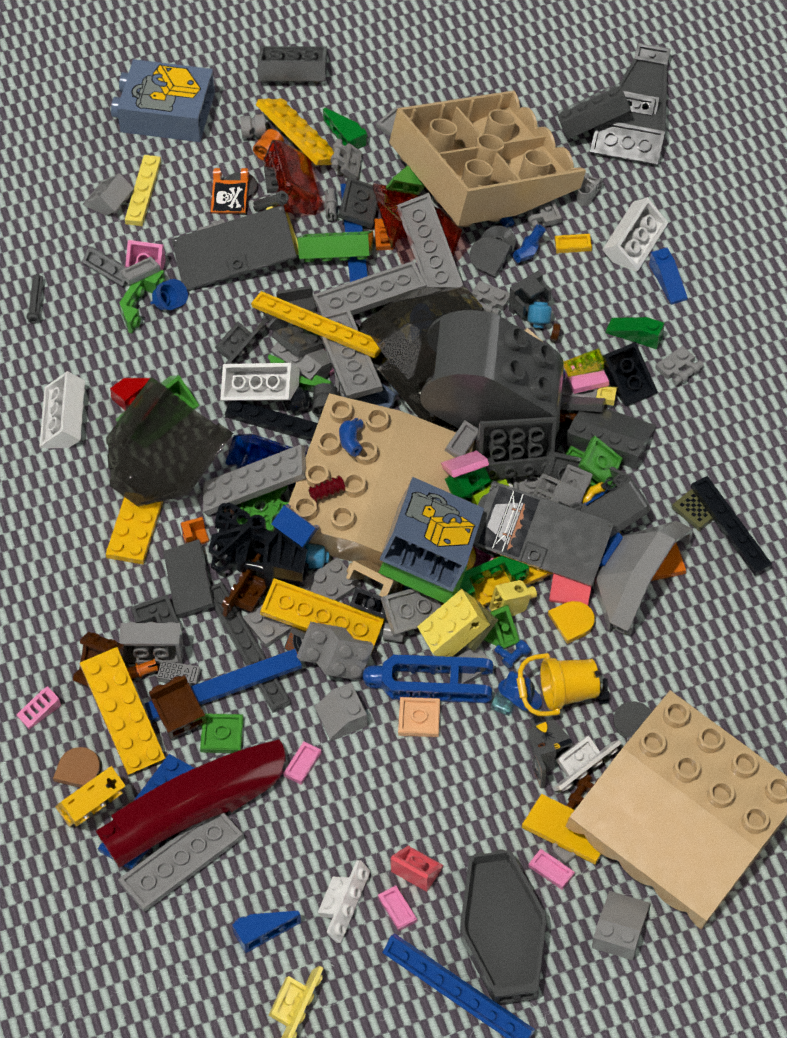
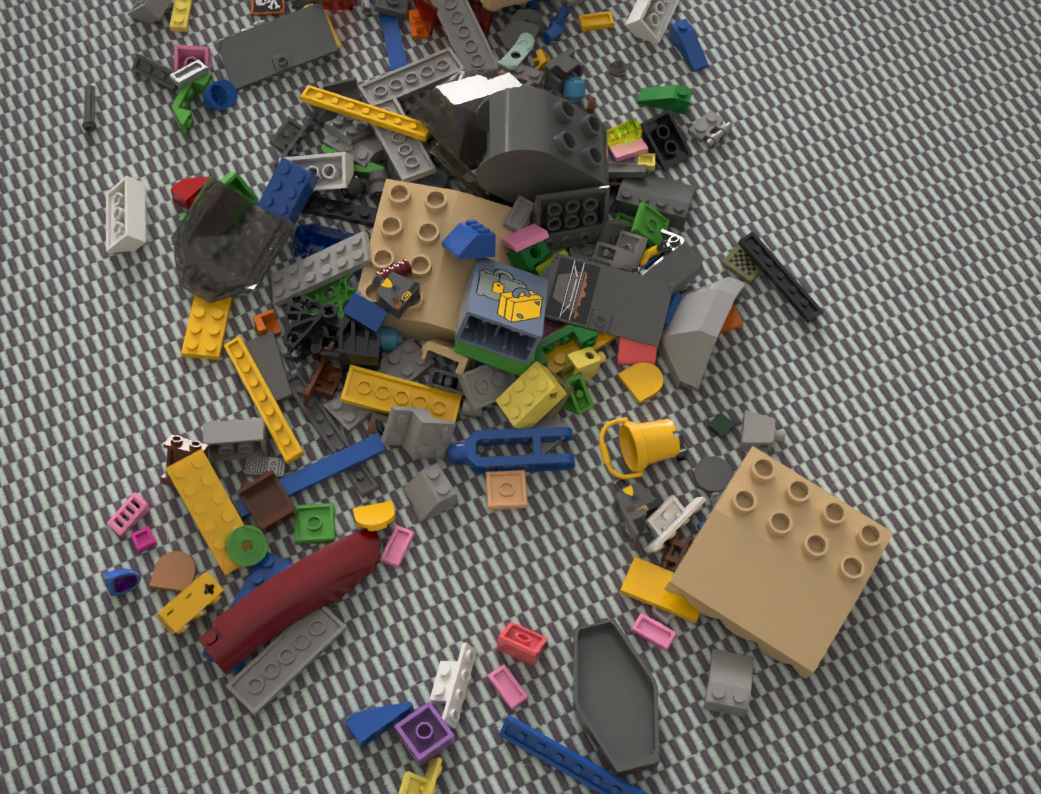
camera: 10 degrees left, 5 degrees up
(26, 771) = (121, 581): none -> rock
(51, 733) = (143, 539): none -> dark pink tile
(142, 669) = (228, 466): orange axle -> none
(156, 609) = (237, 404): dark grey plate -> none
(163, 743) = (256, 539): none -> bright green plate
(183, 607) = (264, 400): none -> yellow tile
(229, 398) = (288, 190): none -> blue brick
(282, 730) = (374, 516): none -> yellow tile
(308, 943) = (424, 734): none -> medium lavender brick
(326, 509) = (396, 293): none -> dark grey torso
(335, 245) = (374, 37): bright green slope -> none
(348, 436) = (410, 221): blue arm -> none
(407, 462) = (470, 241): none -> blue slope
(490, 265) = (523, 47): none -> light aqua piece
(502, 704) = (586, 468): clear light blue tile -> none
(509, 280) = (542, 60): none -> yellow tile
(509, 689) = (591, 454): blue piece -> none
(521, 649) = (586, 424): blue piece -> none
(590, 295) = (618, 69): none -> clear smoke tile
(648, 672) = (721, 425): none -> dark green tile
(687, 681) = (759, 432): none -> light grey torso

